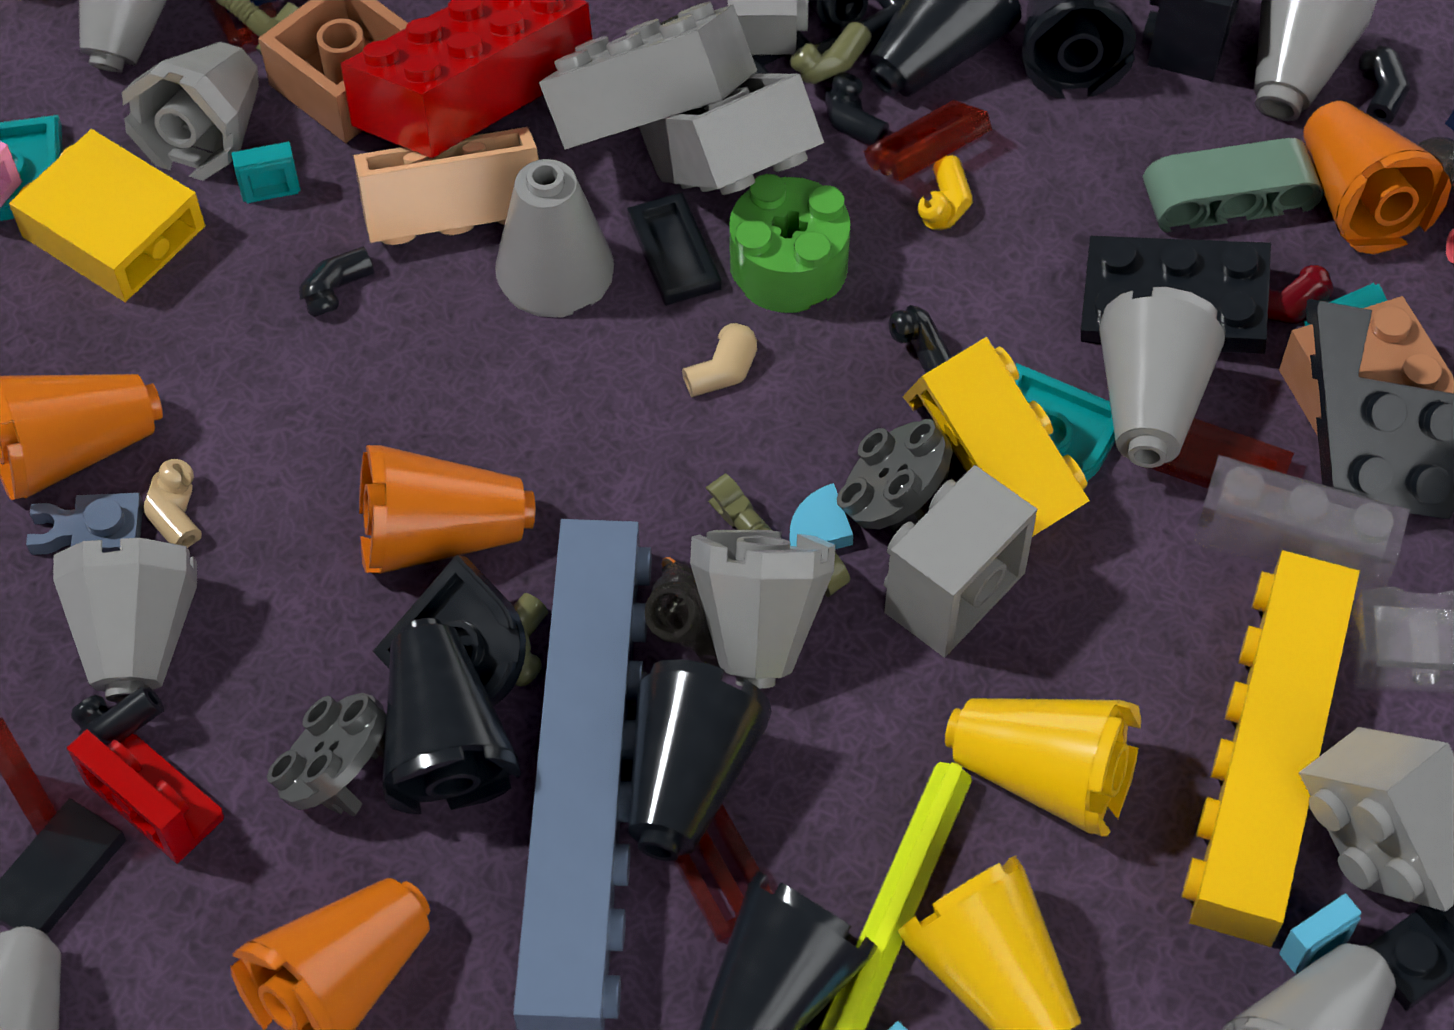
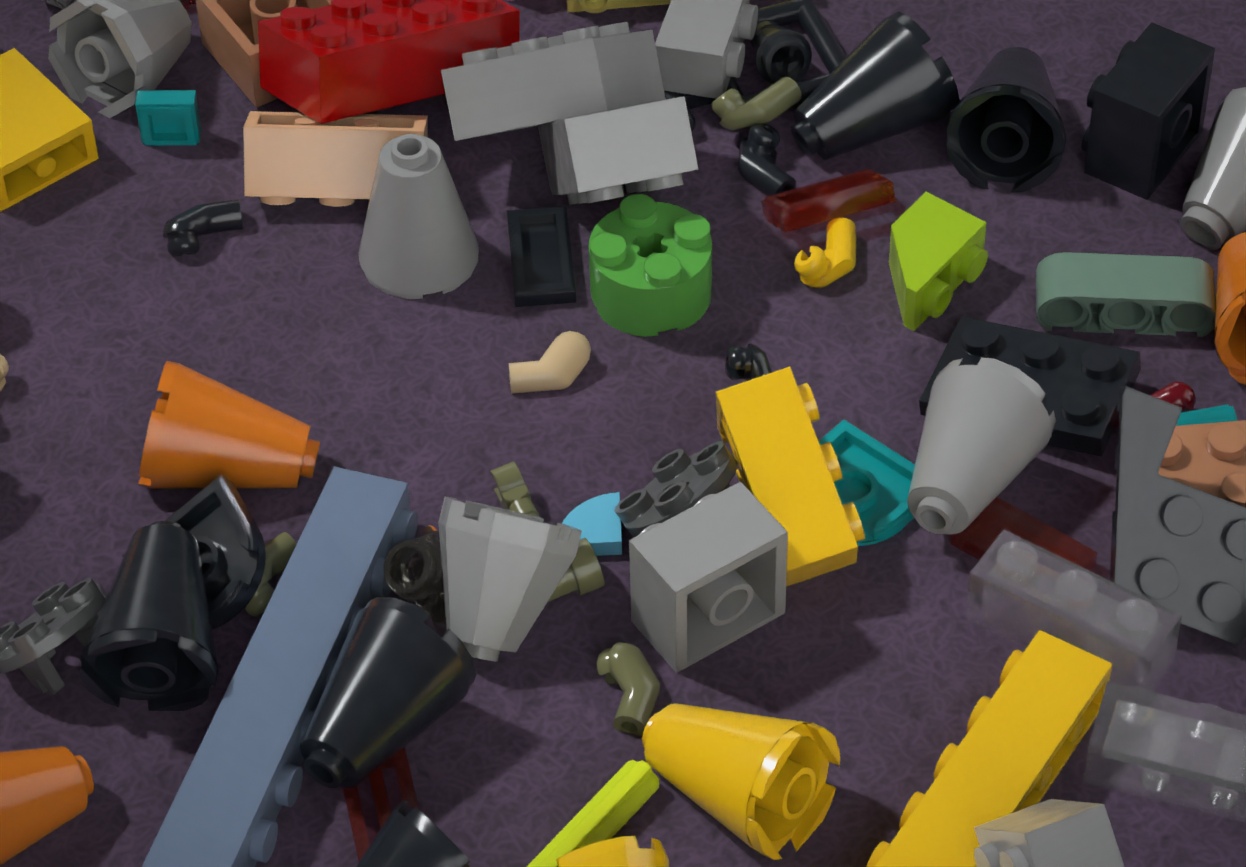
camera: 15 degrees right, 10 degrees down
(902, 663) = (639, 684): none -> olive arm
(1042, 178) = (931, 255): none -> lime slope

